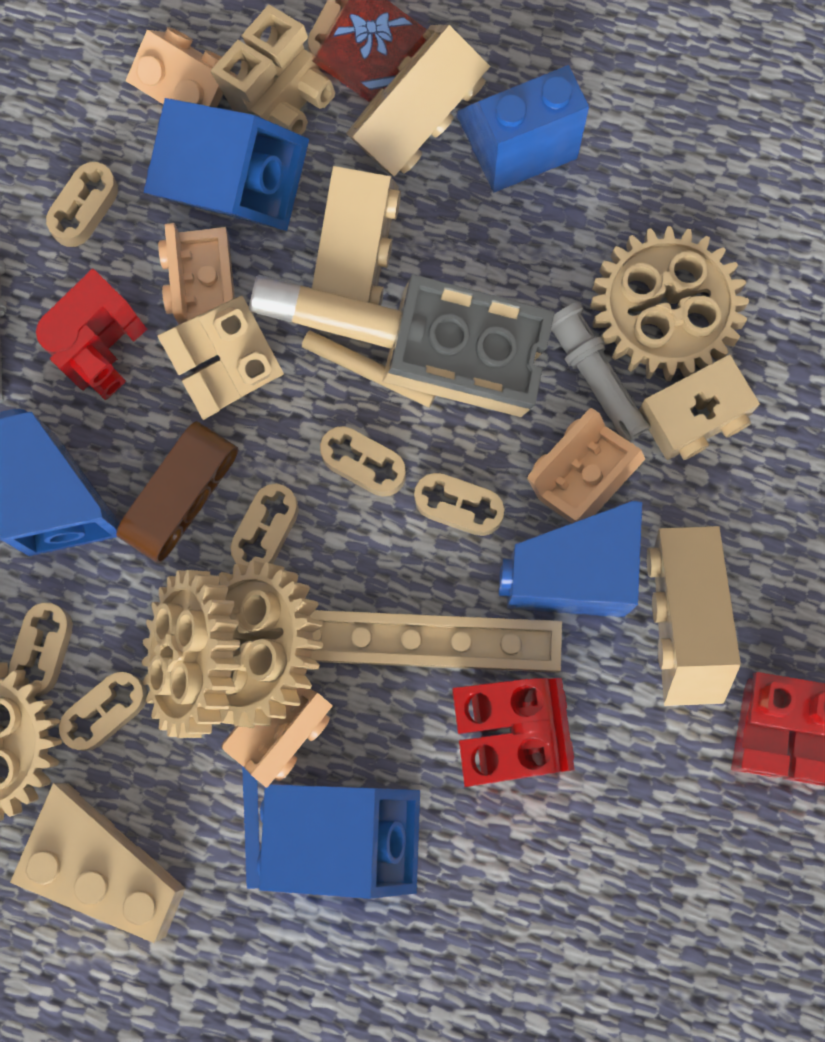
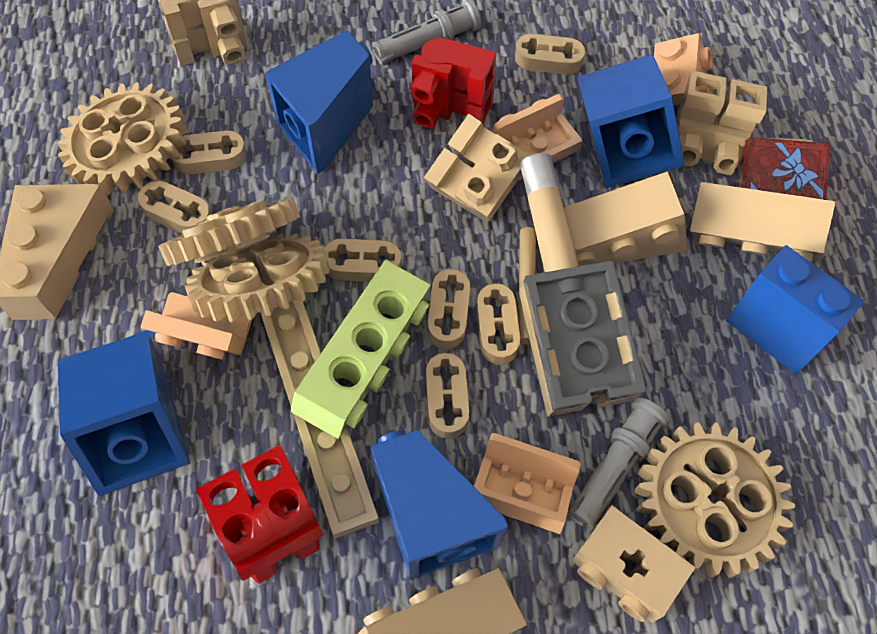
camera: 60 degrees right, 15 degrees down
(177, 492) = (363, 189): reddish brown beam -> none
(405, 408) = (507, 323): none -> tan beam
(421, 628) = (319, 396): none -> yellowish green brick

